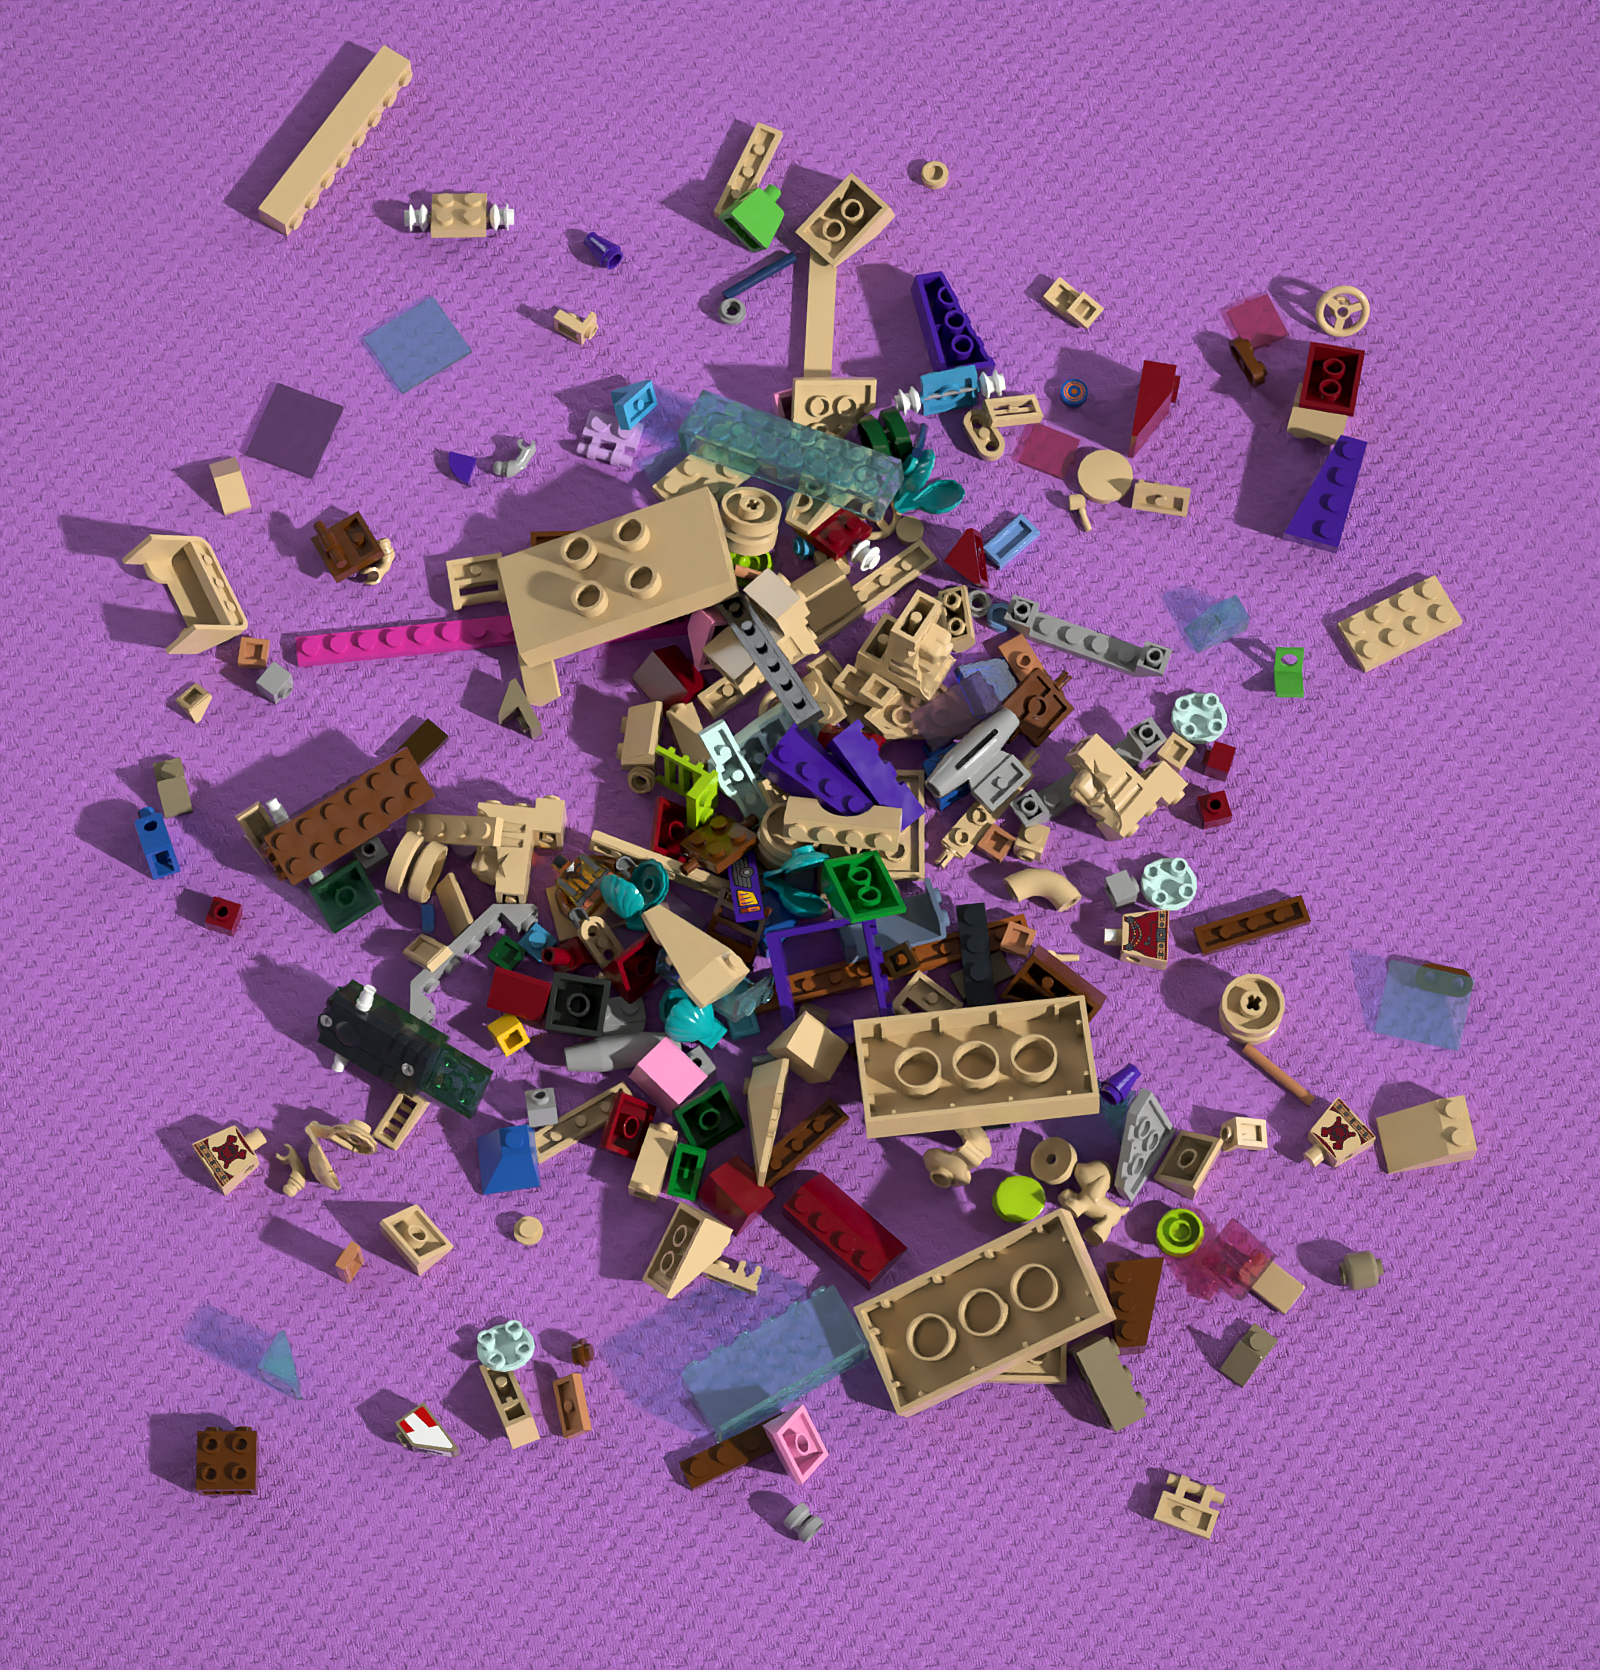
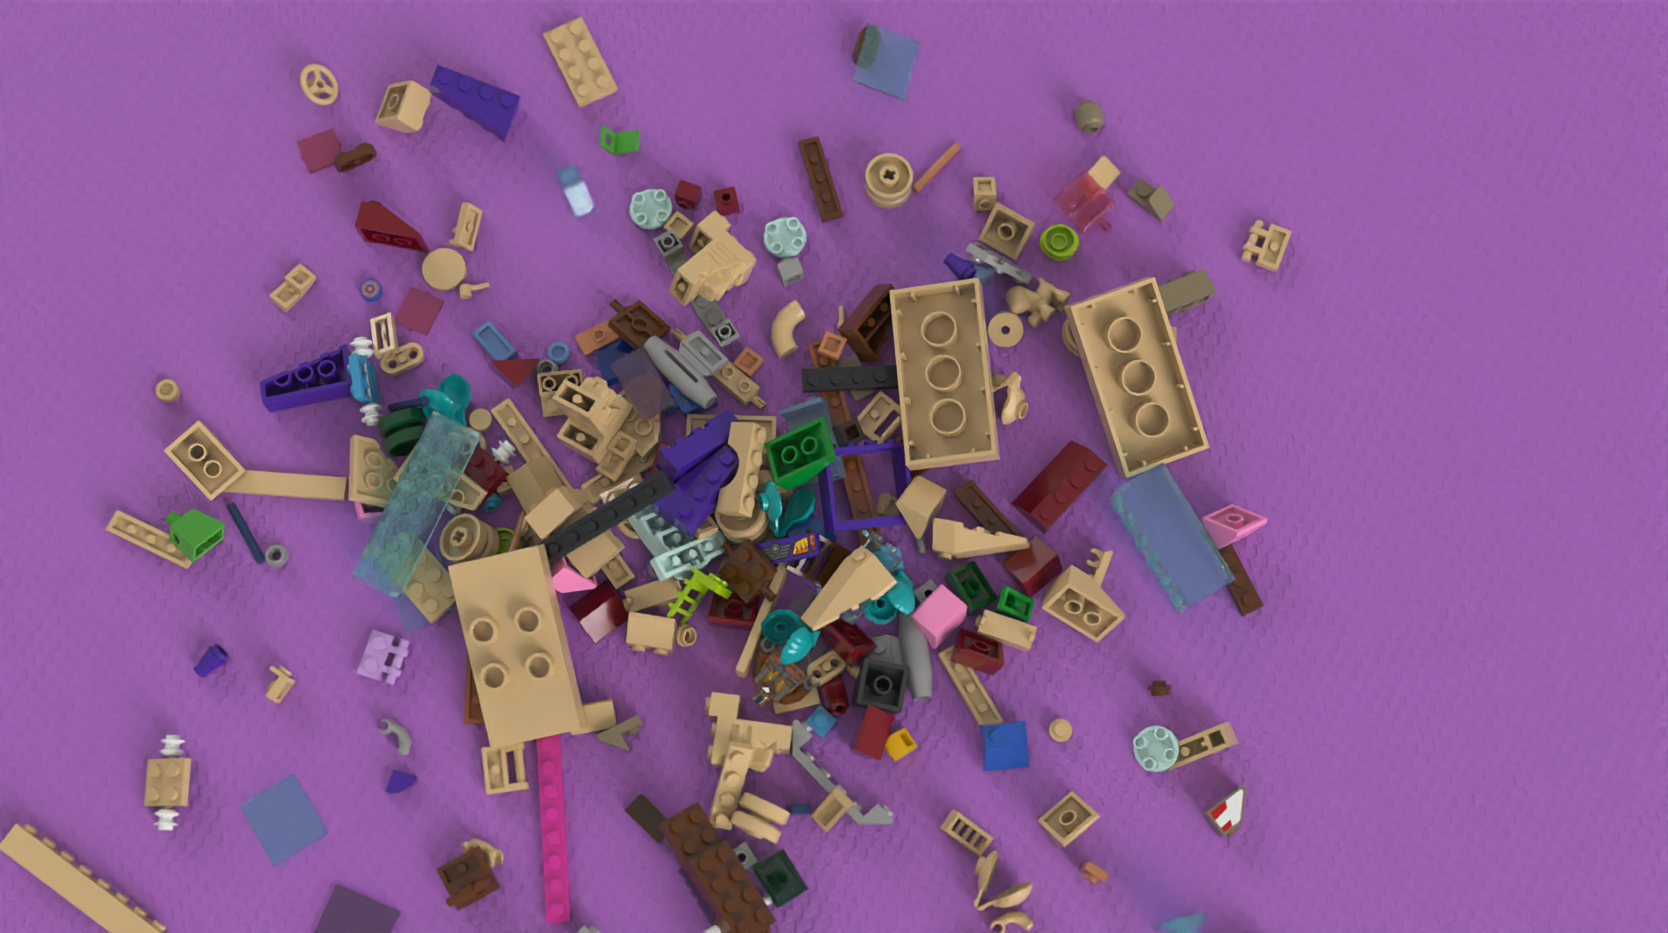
camera: 90 degrees left, 5 degrees up
(399, 1049) = (915, 832): piece -> none
(454, 905) = (789, 788): tan slope -> none
(507, 954) = (831, 745): dark green plate -> none
(541, 1107) = (961, 718): light grey plate -> none
(572, 1405) = (1202, 696): nougat plate -> none
(633, 403) = (355, 637): dark azure slope -> none
(803, 1522) = (1288, 522): light grey wheel -> none
(1018, 1199) = (1034, 356): lime piece -> none
(1031, 842) = (749, 336): tan bracket -> none
(1085, 643) = (586, 286): light grey slope -> none
(1132, 1295) = (1108, 272): reddish brown wedge -> none
(1142, 938) = (829, 257): torso -> none
(1331, 379) = (379, 92): dark red slope -> none
(1337, 1136) = (986, 127): torso -> none
(1427, 1135) = (985, 65): tan slope -> none

